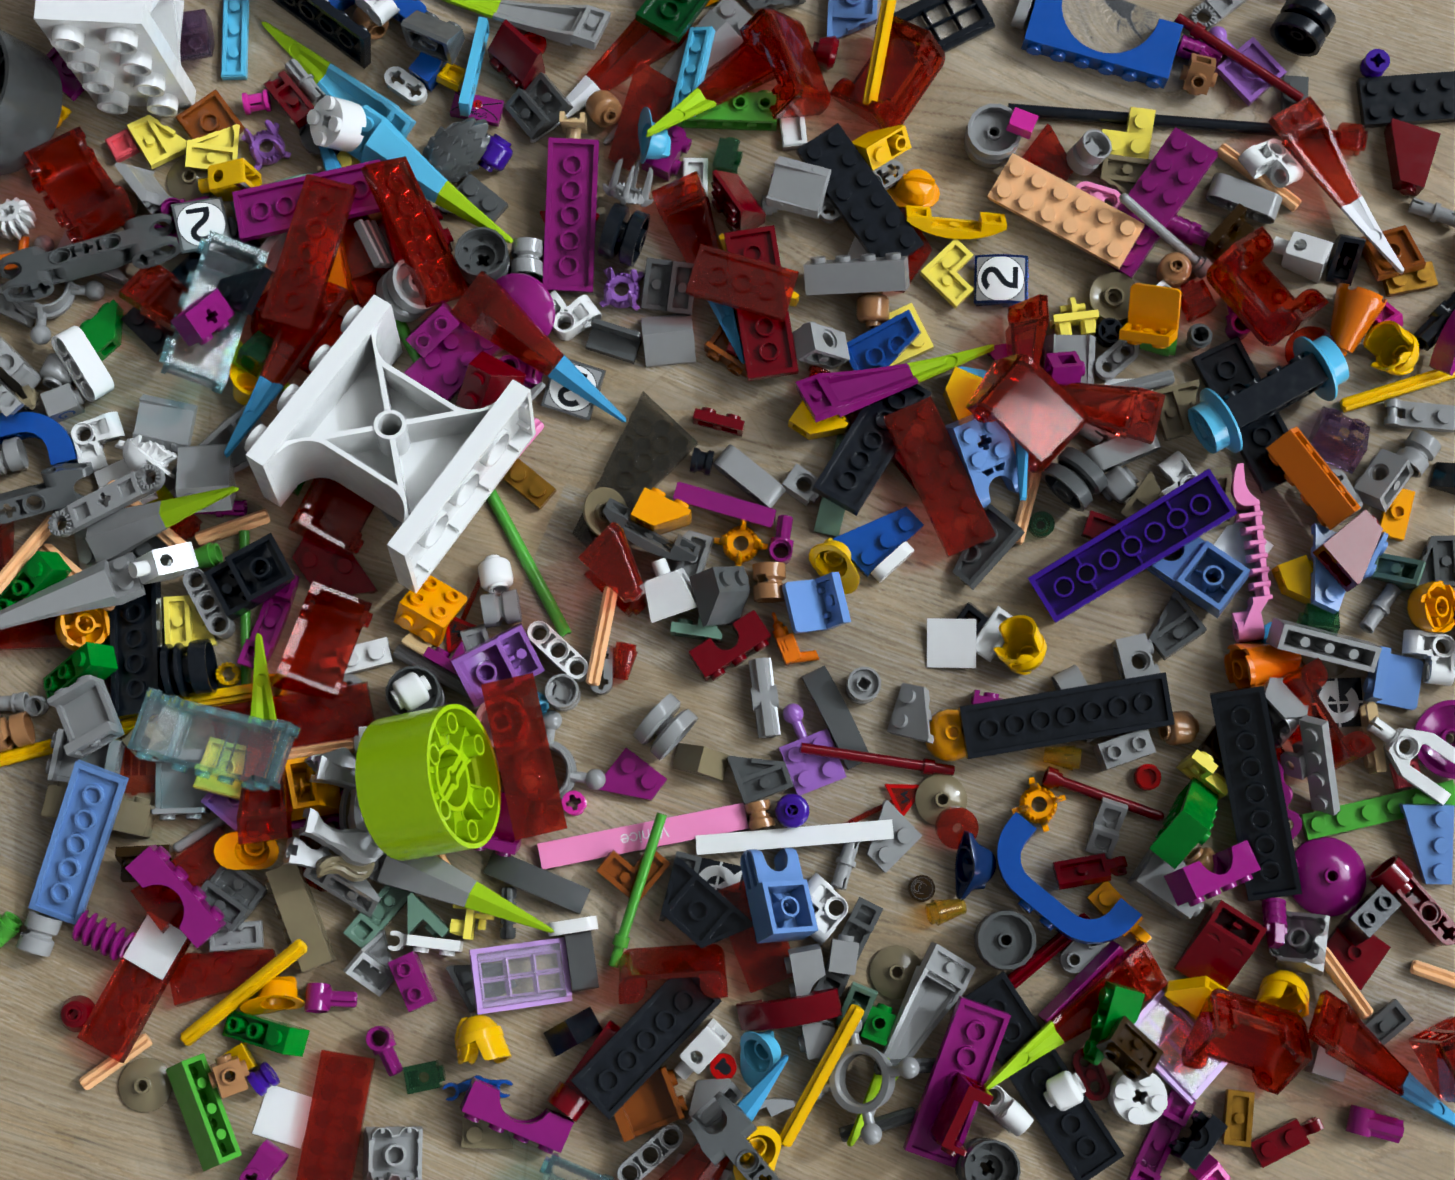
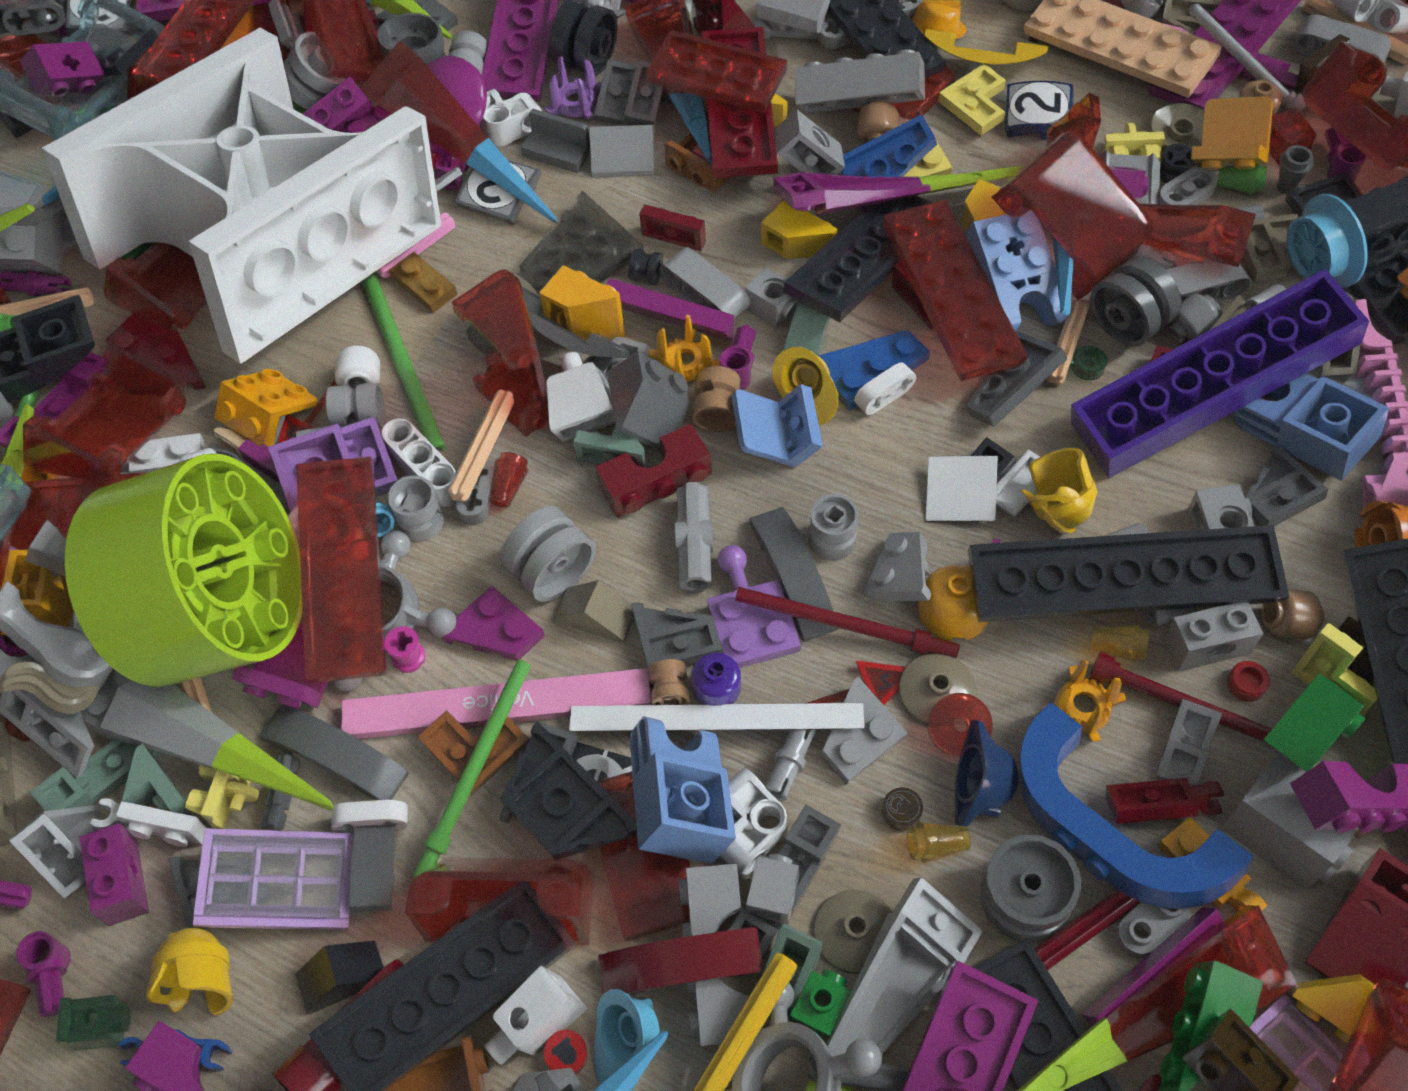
camera: 10 degrees right, 20 degrees down
(788, 646) = (735, 480): orange piece -> none

